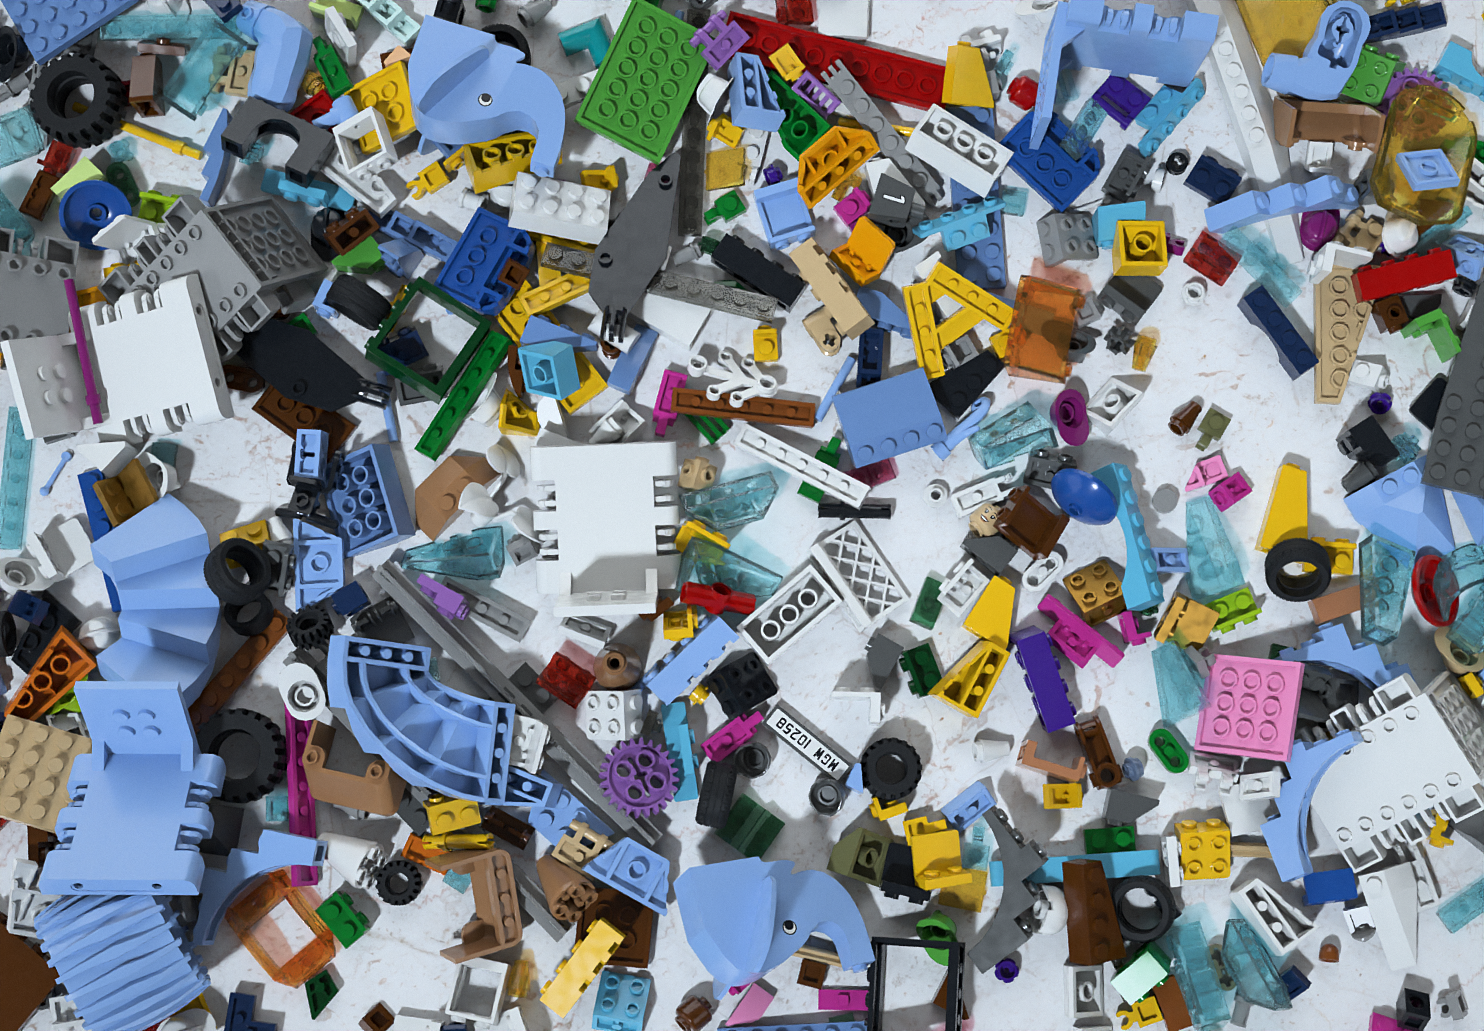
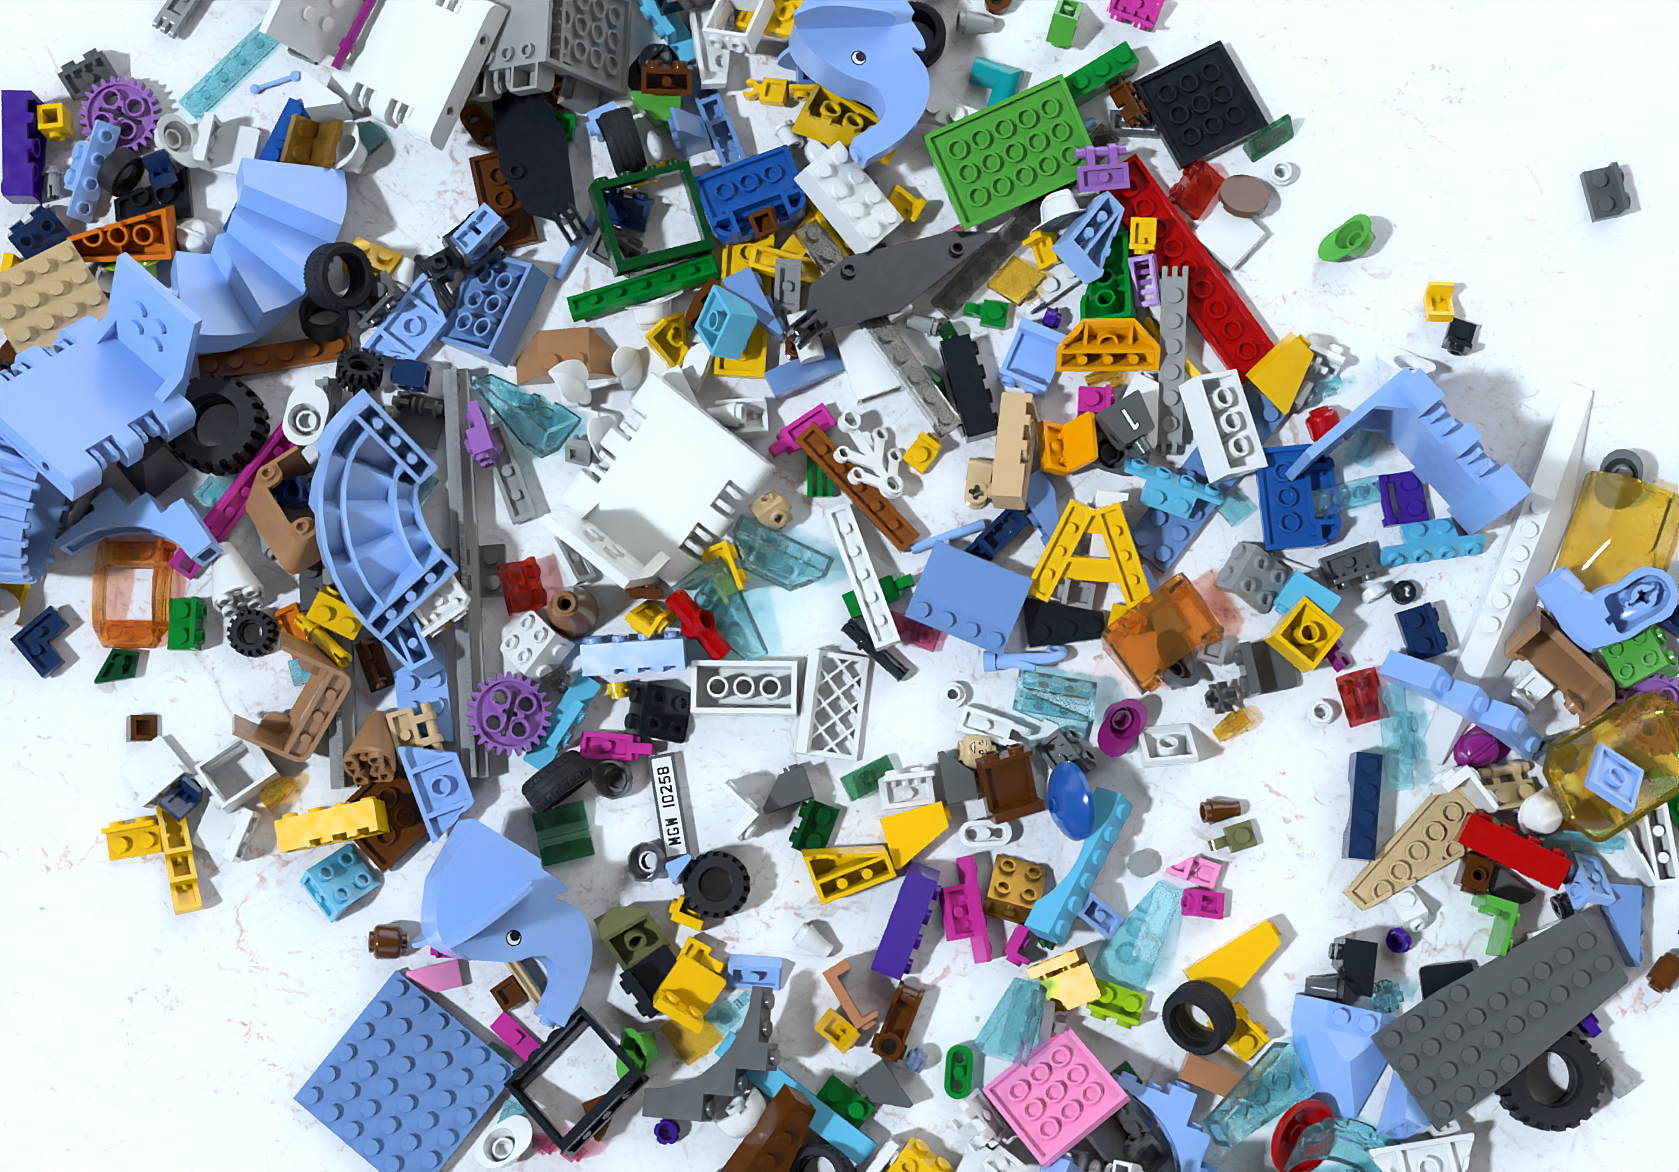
camera: 45 degrees right, 0 degrees up
(335, 757) = (294, 492): none -> dark blue brick
(569, 306) = (787, 285): none -> light grey hinge

